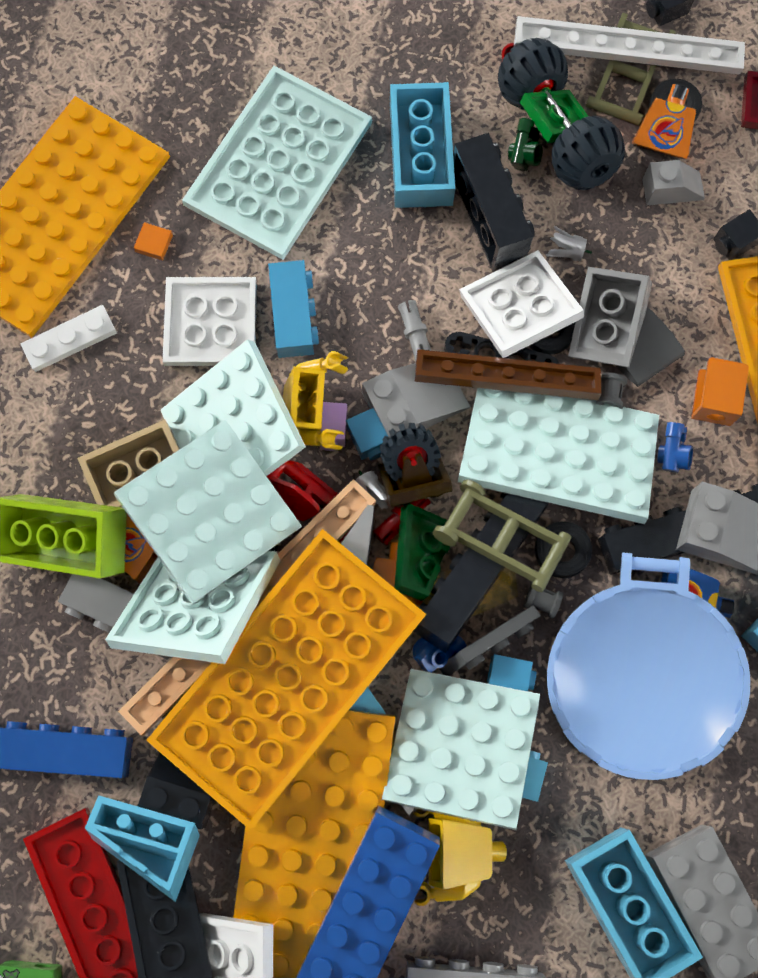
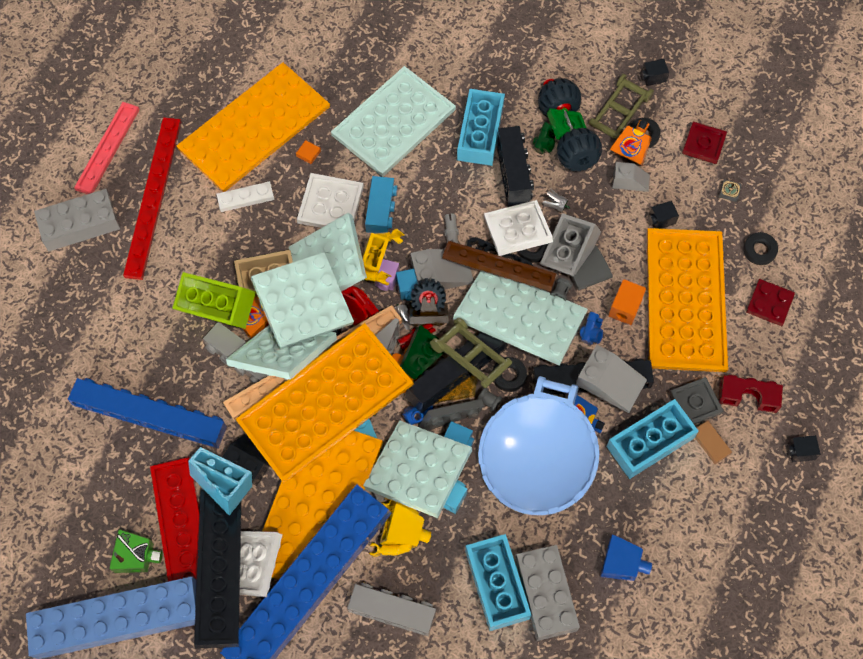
camera: 15 degrees right, 10 degrees down
(635, 45) = (625, 93): white plate -> none

